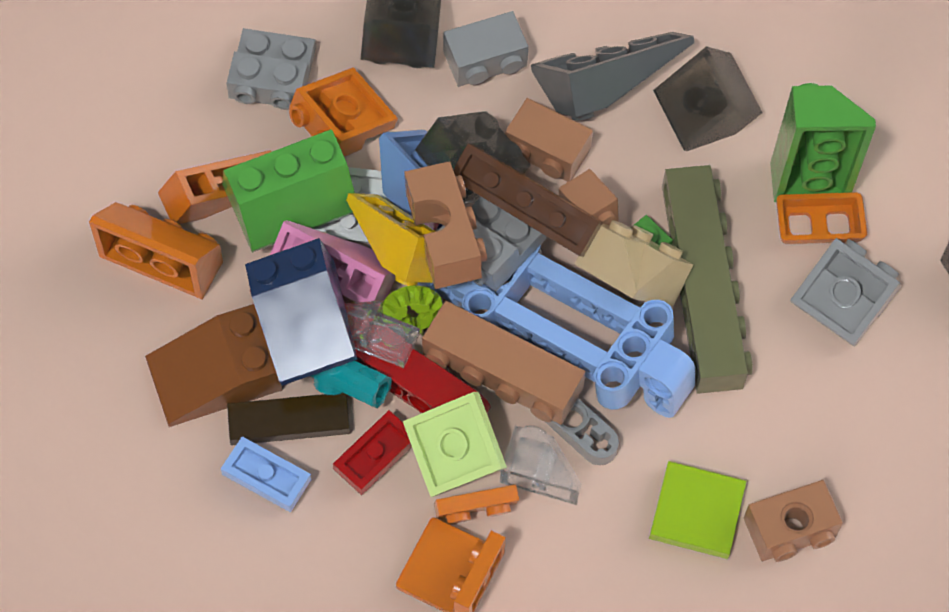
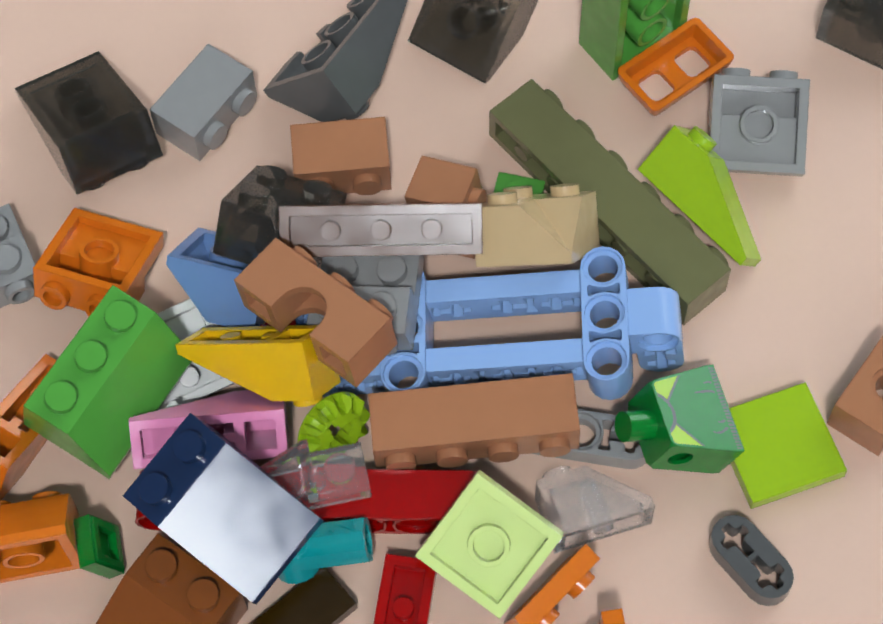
camera: 30 degrees left, 0 degrees up
(217, 290) = (99, 546): none -> green tile
(613, 570) = (759, 552): none -> dark grey beam
(639, 451) = (682, 423): none -> green torso
(772, 311) = (702, 188): none -> lime slope

